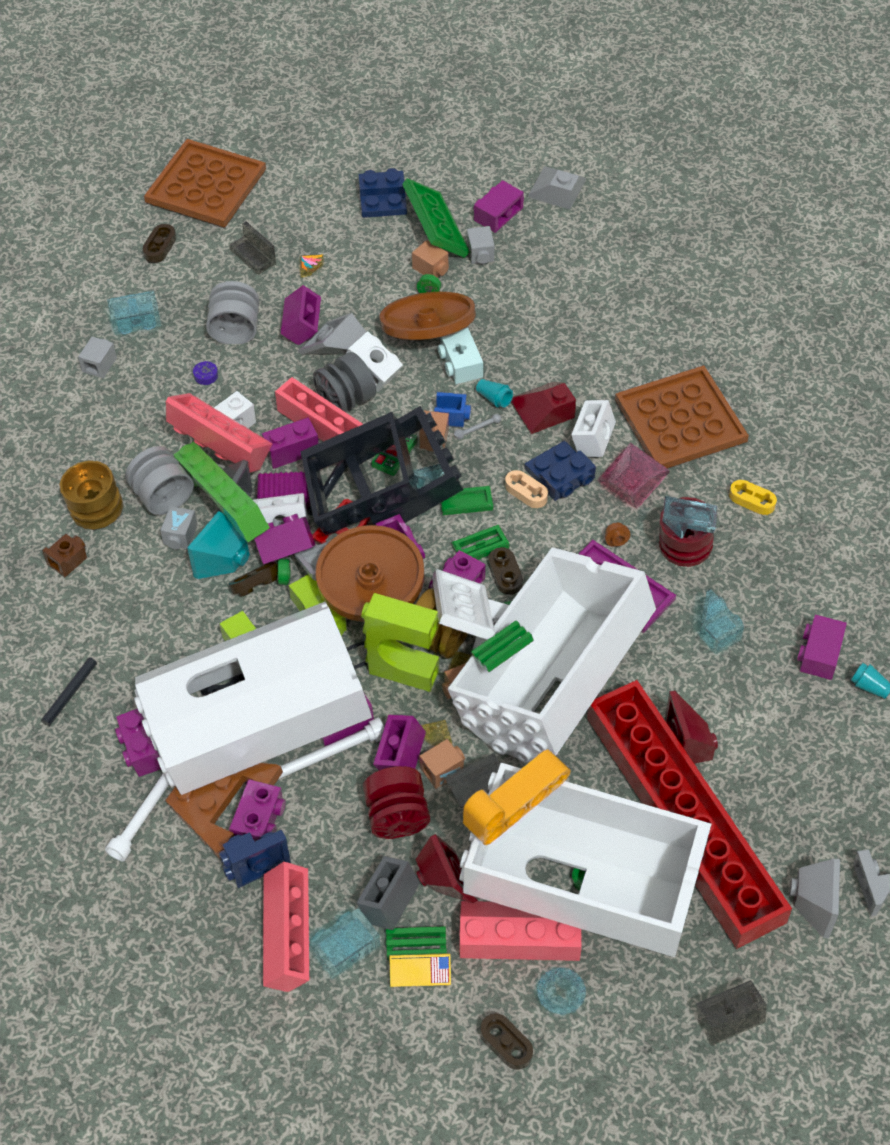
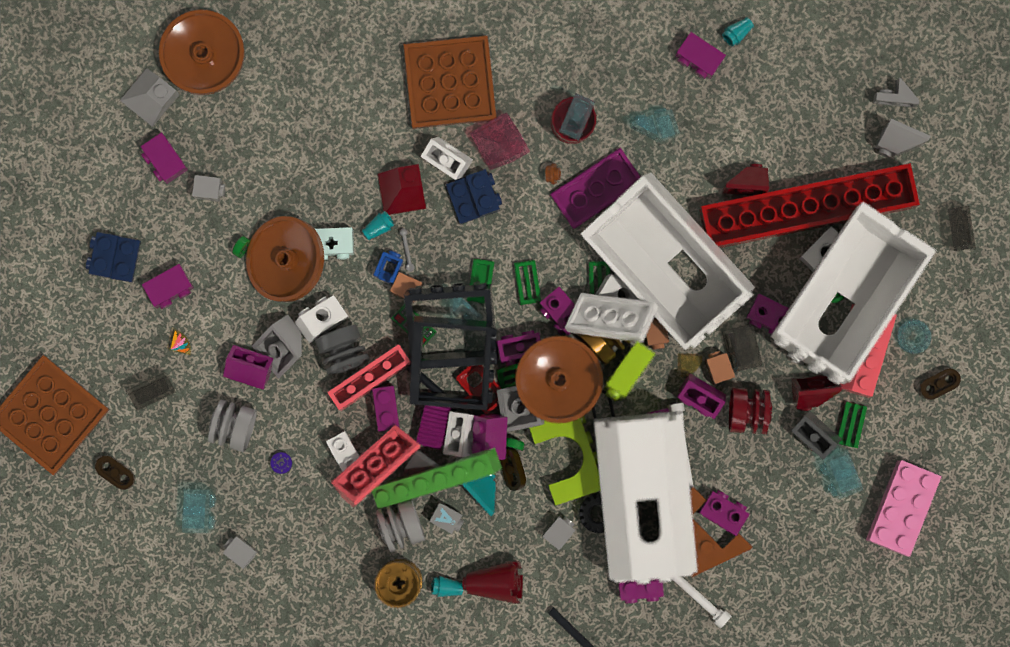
camera: 75 degrees left, 30 degrees up
(65, 554) = (445, 622): reddish brown brick -> none
(97, 545) = (446, 587): none -> teal cone
(114, 595) = (496, 582): none -> dark red cone
(186, 639) = (559, 532): none -> light grey brick
(250, 860) = (764, 530): dark blue plate -> none
(286, 927) = (821, 512): coral brick -> none
(318, 1033) = (903, 508): none -> bright pink brick
(366, 238) = (168, 286): none -> magenta brick
(420, 970) = (873, 427): yellow tile -> none
(430, 259) = (213, 237): nougat brick -> none
(435, 218) = (167, 219): green tile -> none
(495, 813) = (812, 329): light orange beam -> none
(500, 646) = (673, 317): green tile -> none
(505, 568) = (558, 270): dark brown plate -> none
(526, 489) = (481, 226): light nougat beam -> none
(619, 206) = (201, 52): none -> dark orange dish
(752, 497) = (541, 50): yellow beam -> none

